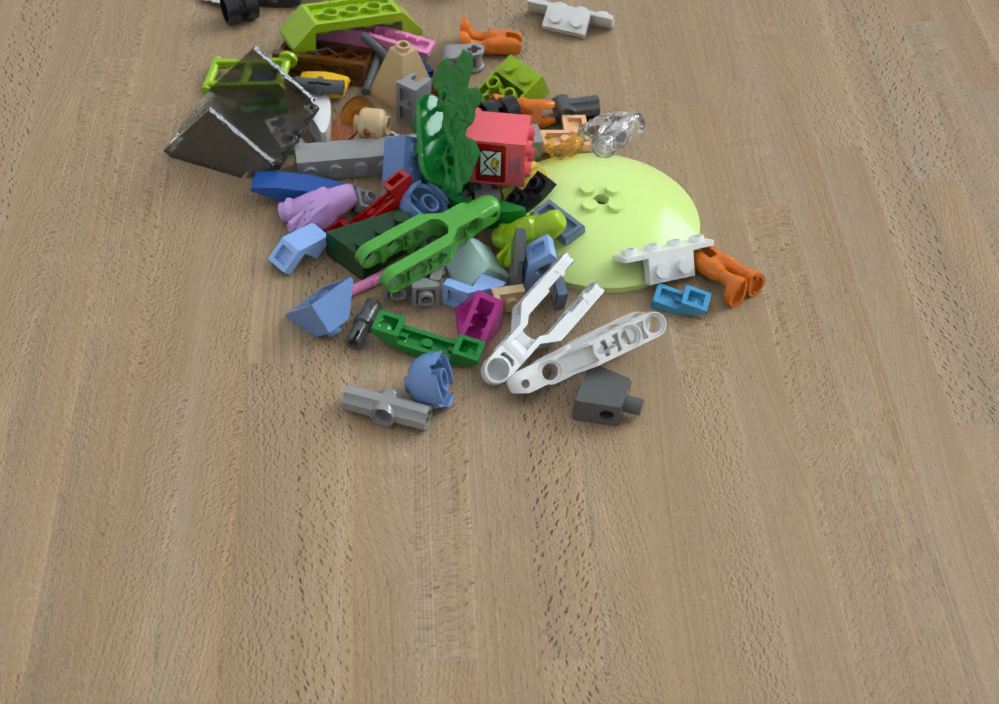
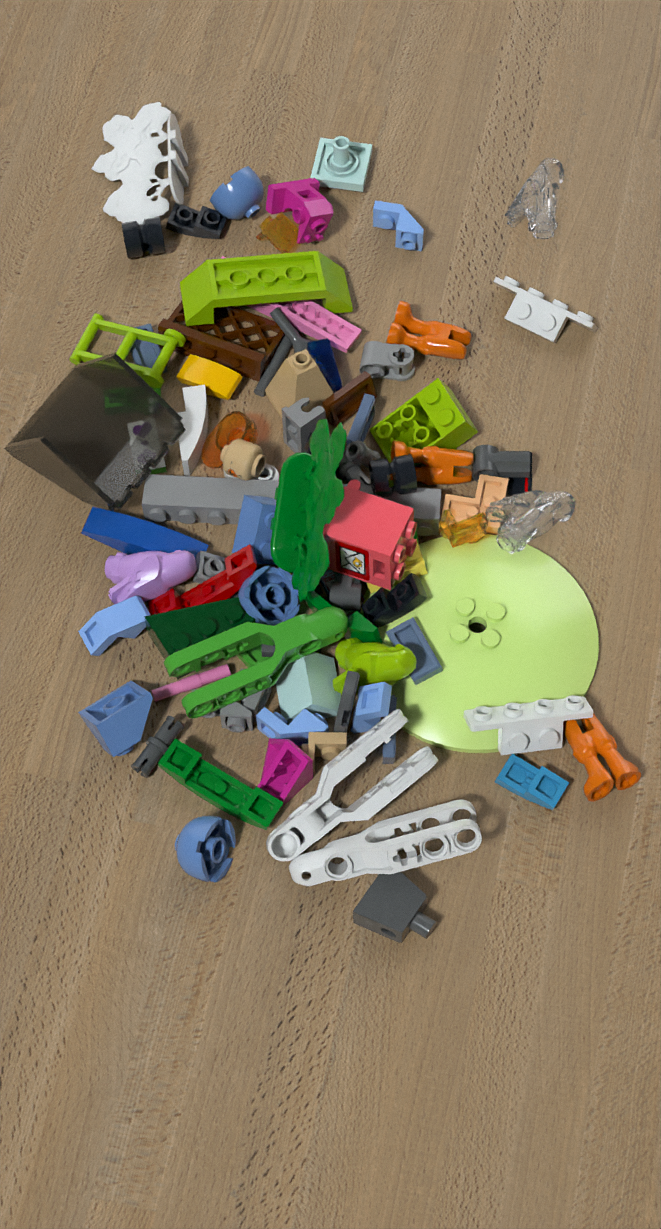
camera: 20 degrees right, 15 degrees up
(322, 86) = (179, 386): dark grey pin -> none
(387, 407) = (150, 869): light grey piece -> none

